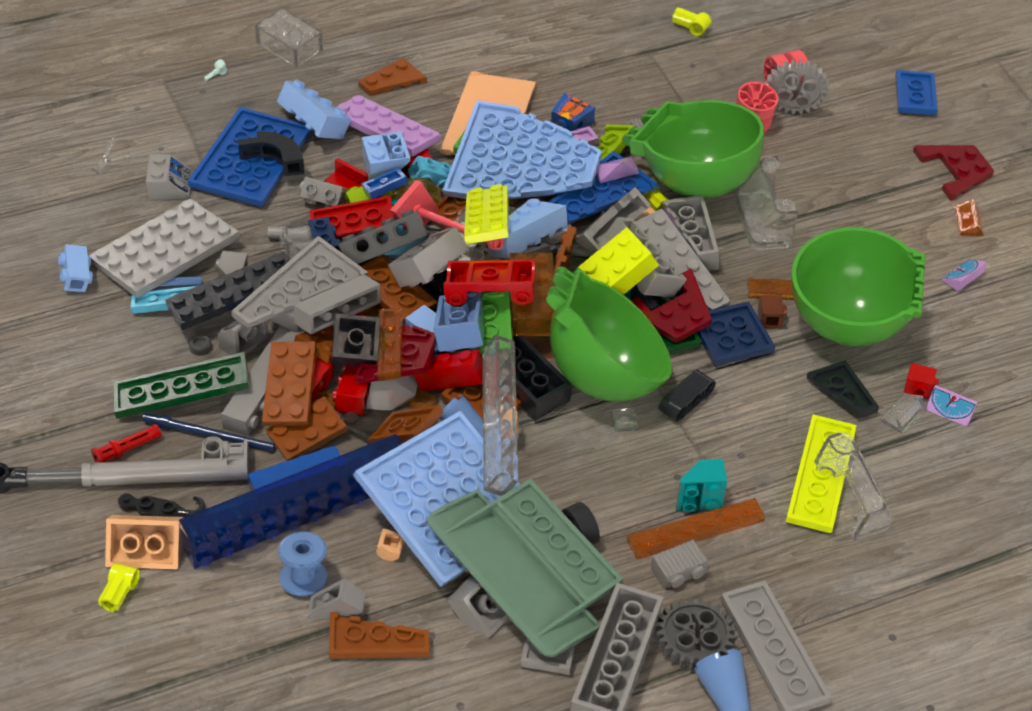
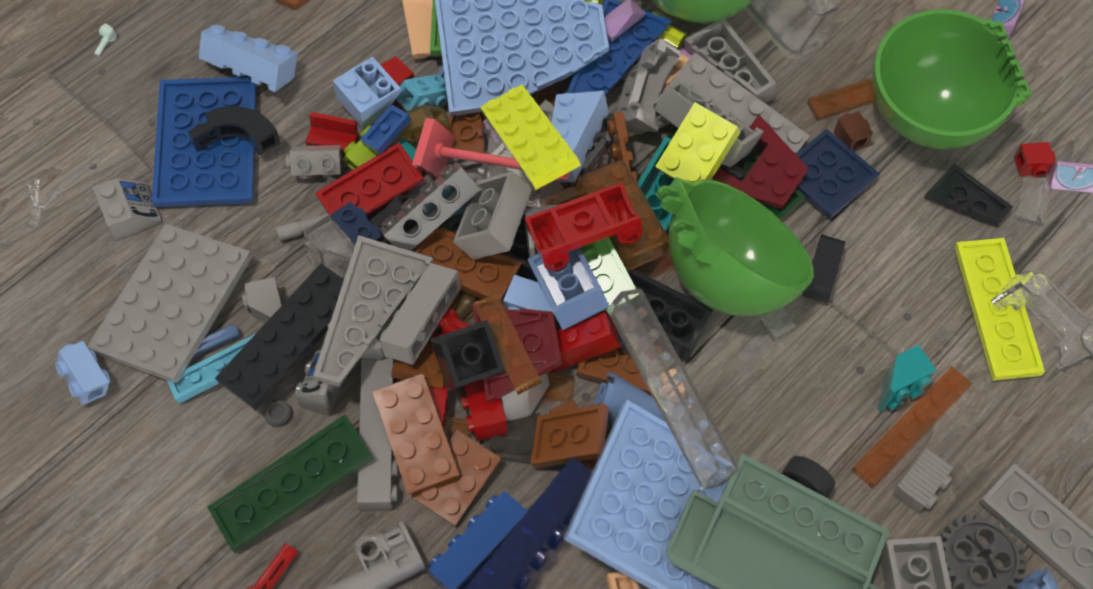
camera: 25 degrees left, 15 degrees up
(167, 422) = (294, 532): dark blue bar -> none
(377, 120) = (340, 45): lavender plate -> none

